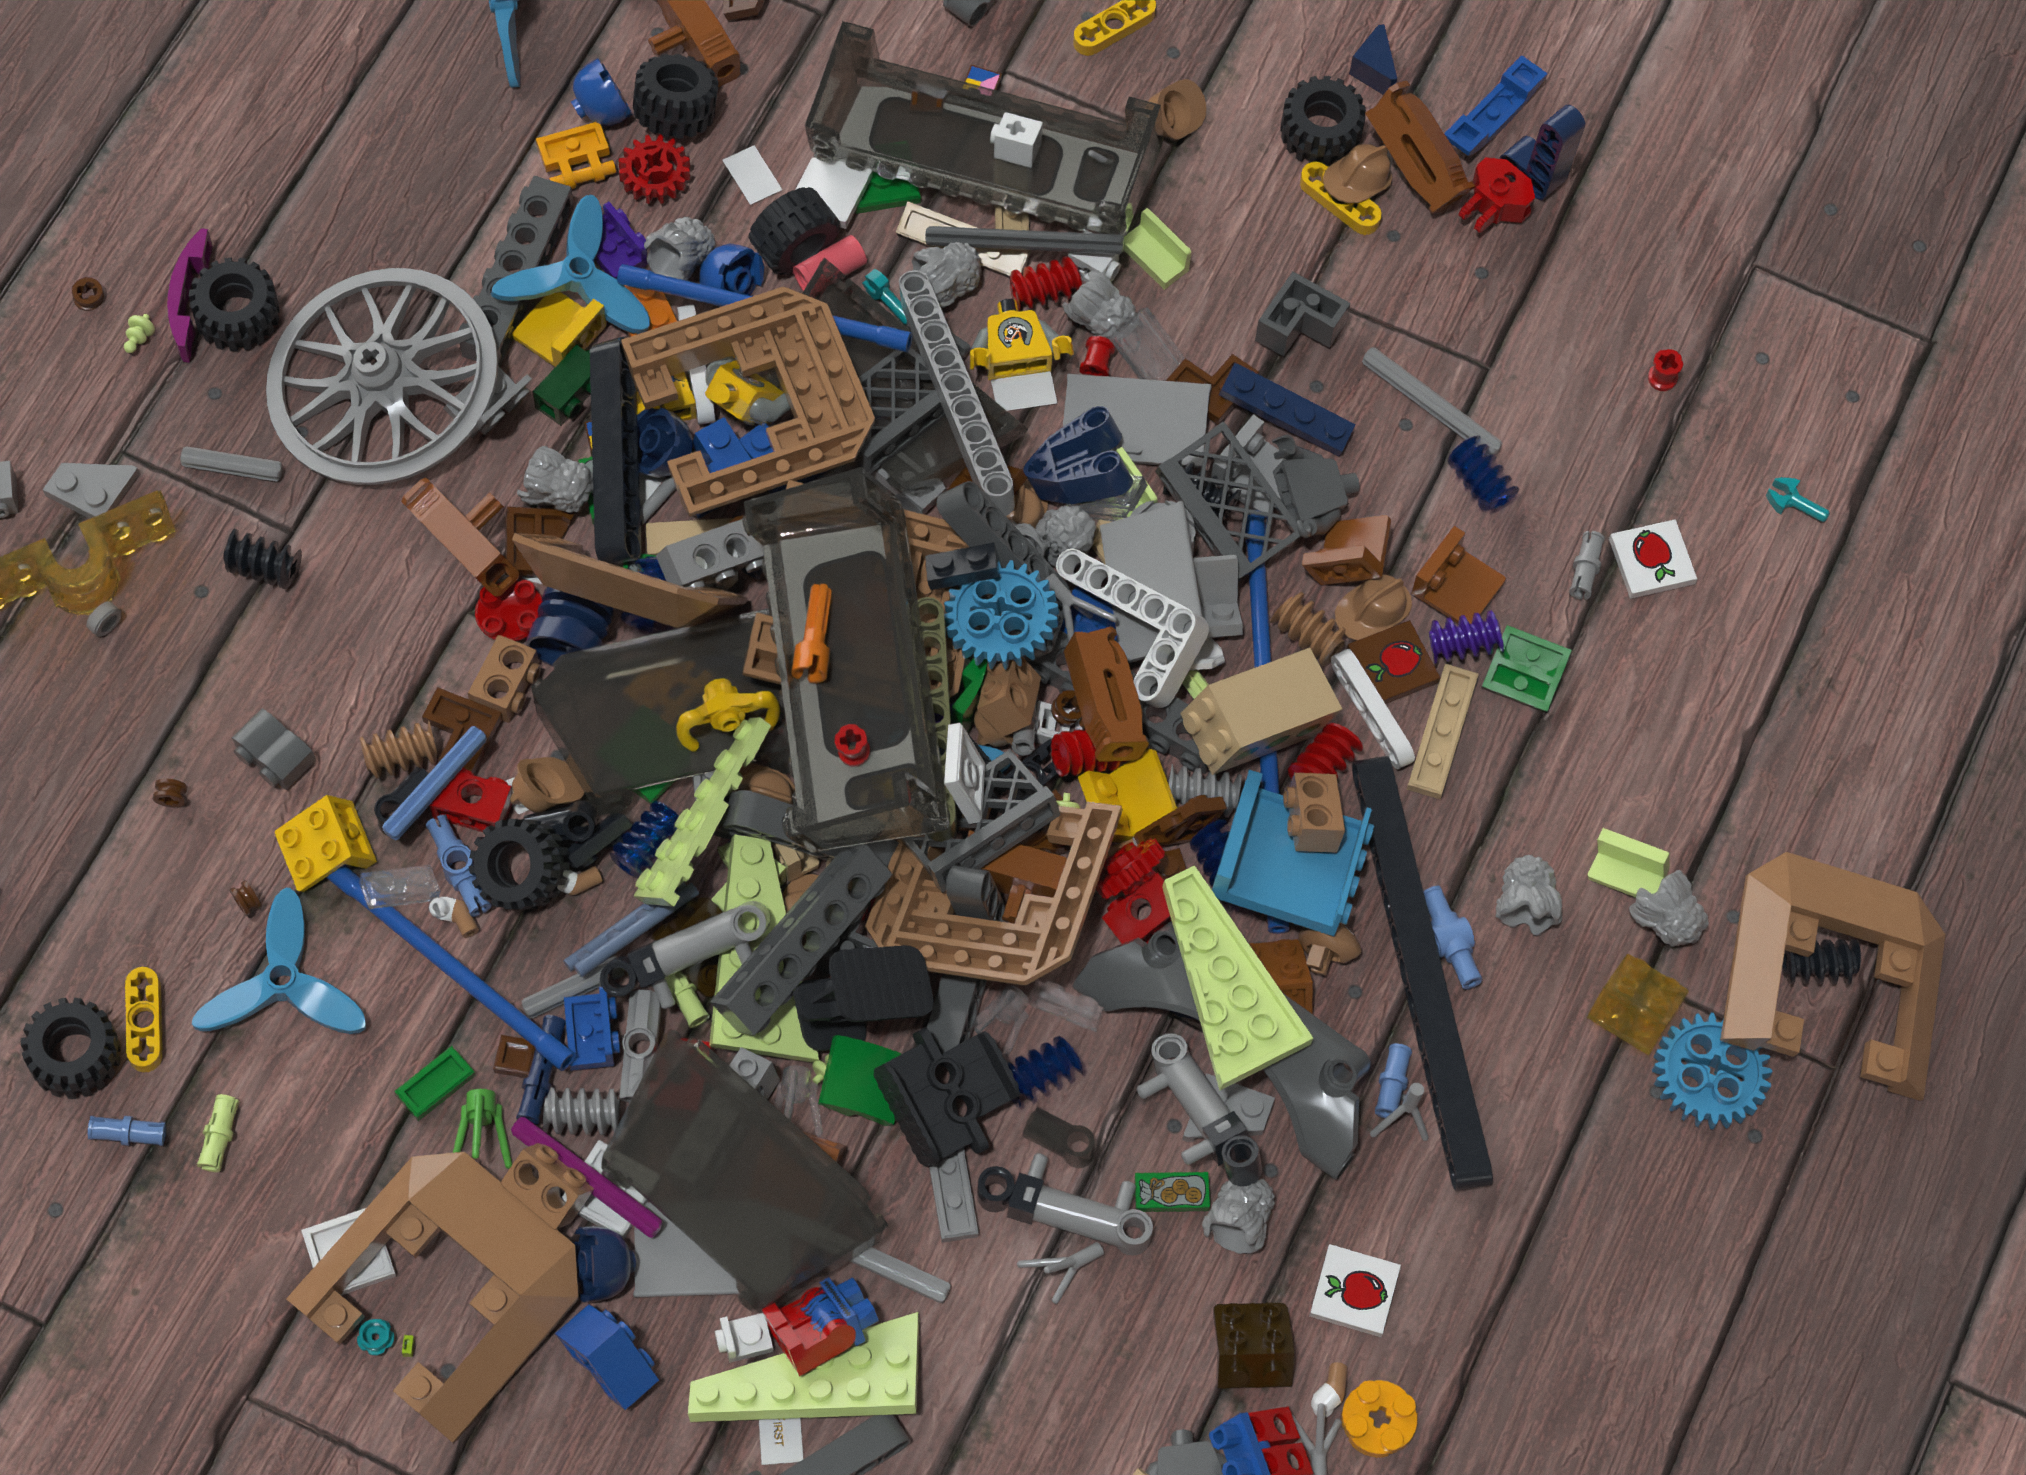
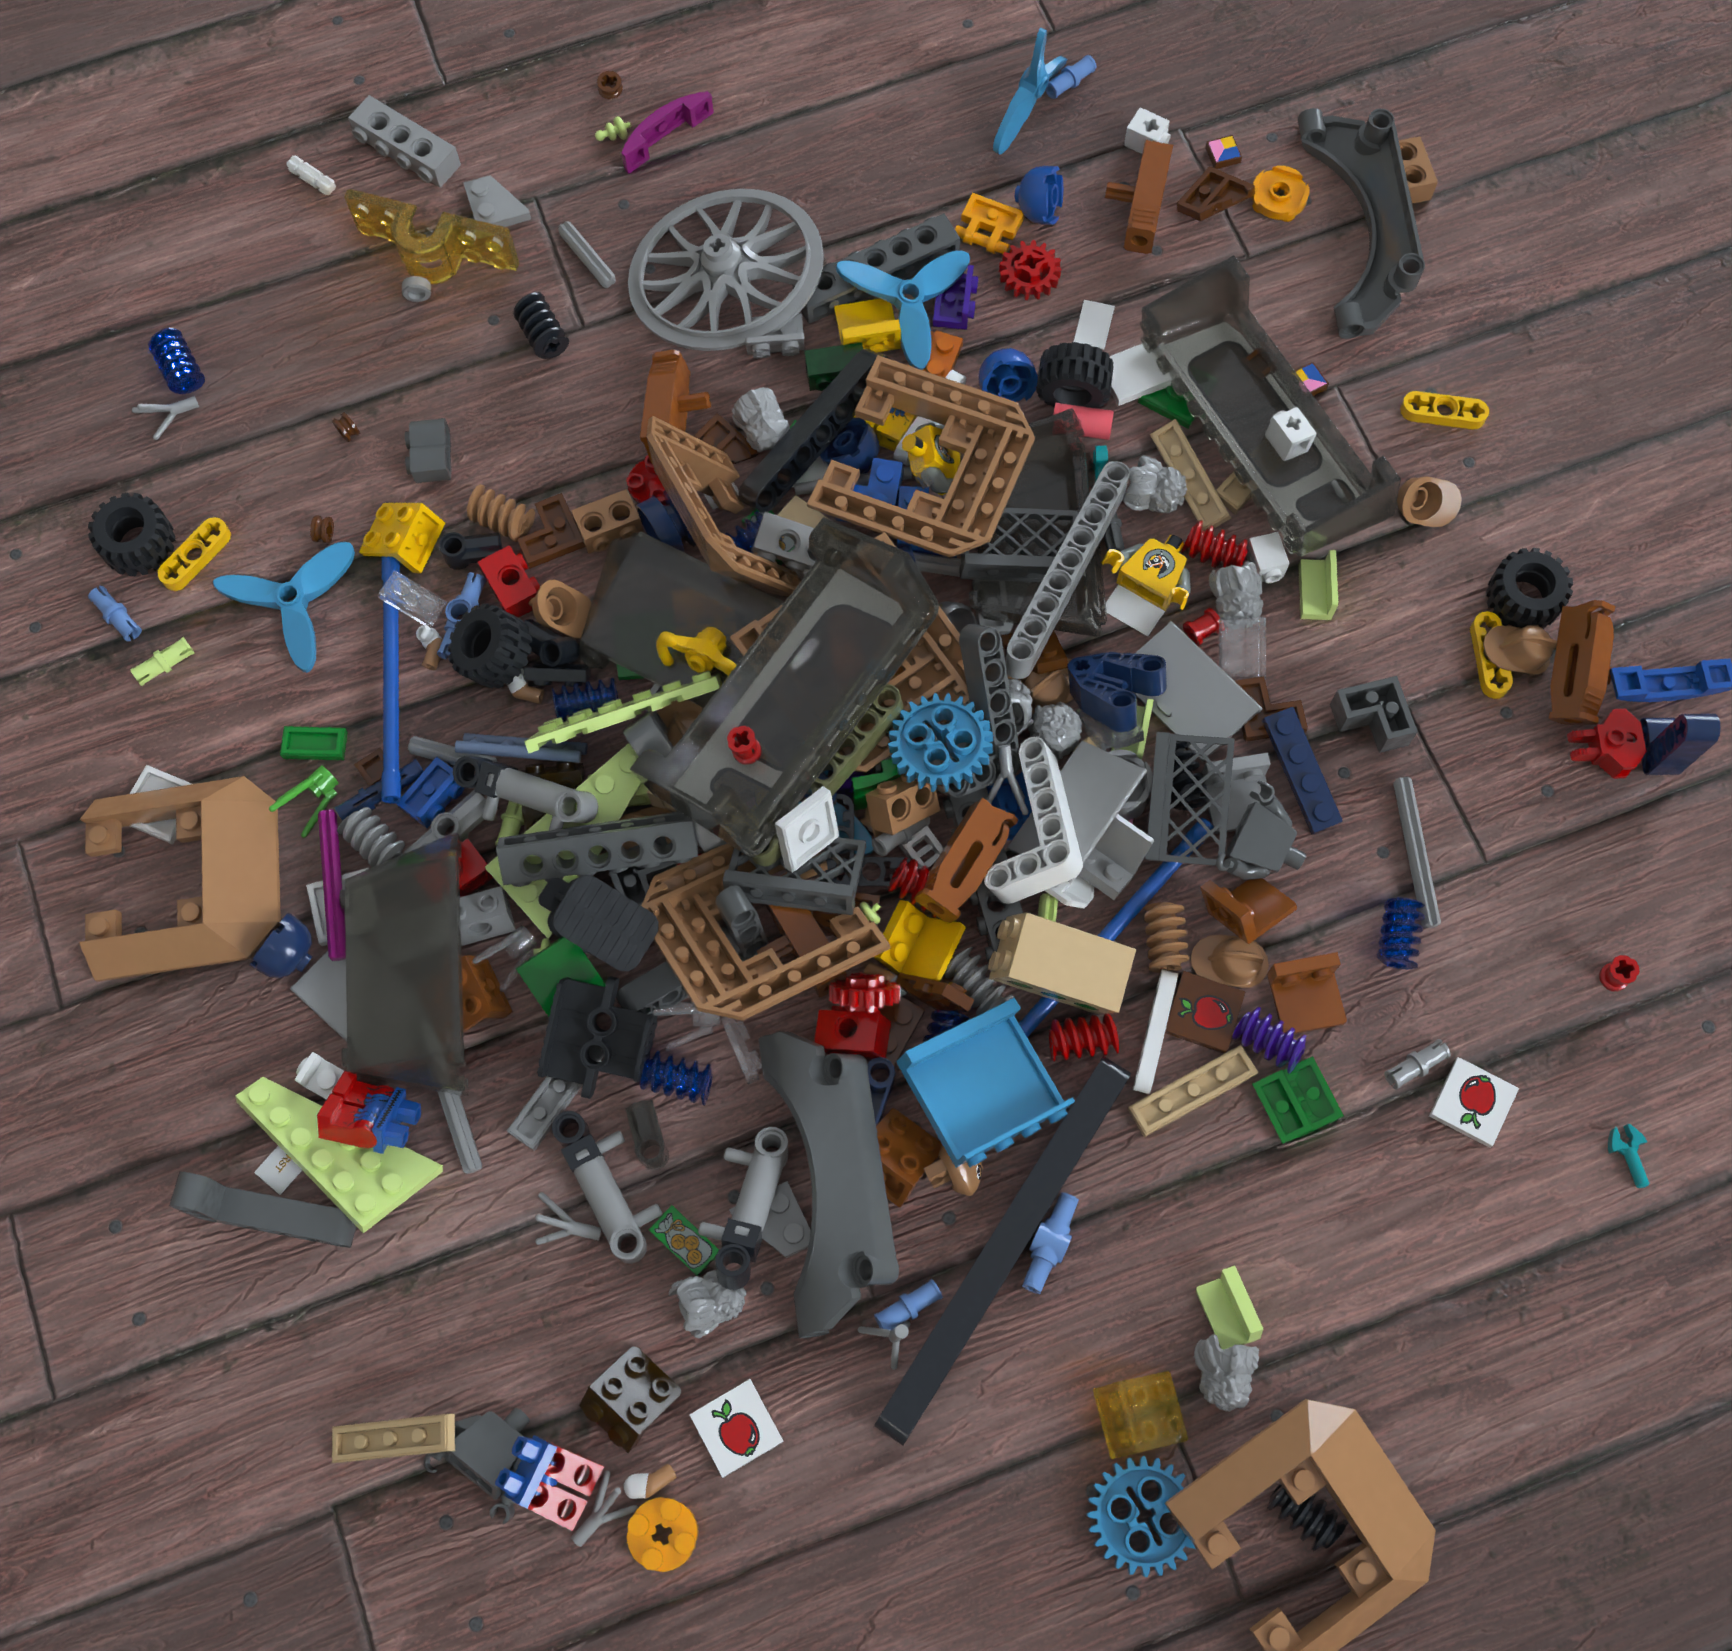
camera: 50 degrees right, 5 degrees up
(228, 282) = (678, 137): black tyre -> none
(372, 1327) = (111, 867): teal plate -> none
(408, 1346) = (132, 894): lime piece -> none
(434, 783) = (490, 549): medium blue axle -> none
(543, 1194) = (299, 868): medium nougat brick -> none
(609, 1355) = (222, 1012): blue brick -> none
(647, 280) = (944, 334): blue piece -> none
(675, 95) = (1087, 230): black tyre -> none
(679, 247) = (990, 331): light grey hair -> none
(812, 651) = (782, 658): orange piece -> none
(962, 566) = (945, 687): black plate -> none
(1026, 240) = (1228, 506): dark grey axle -> none
(1058, 712) = (933, 841): reddish brown bush -> none
(1236, 999) = (836, 1154): yellowish green wing -> none
(1314, 812) = (1032, 1070): medium nougat brick -> none
(1374, 62) = (1610, 575): dark blue slope -> none
(1529, 895) = (1134, 1264): light grey hair -> none

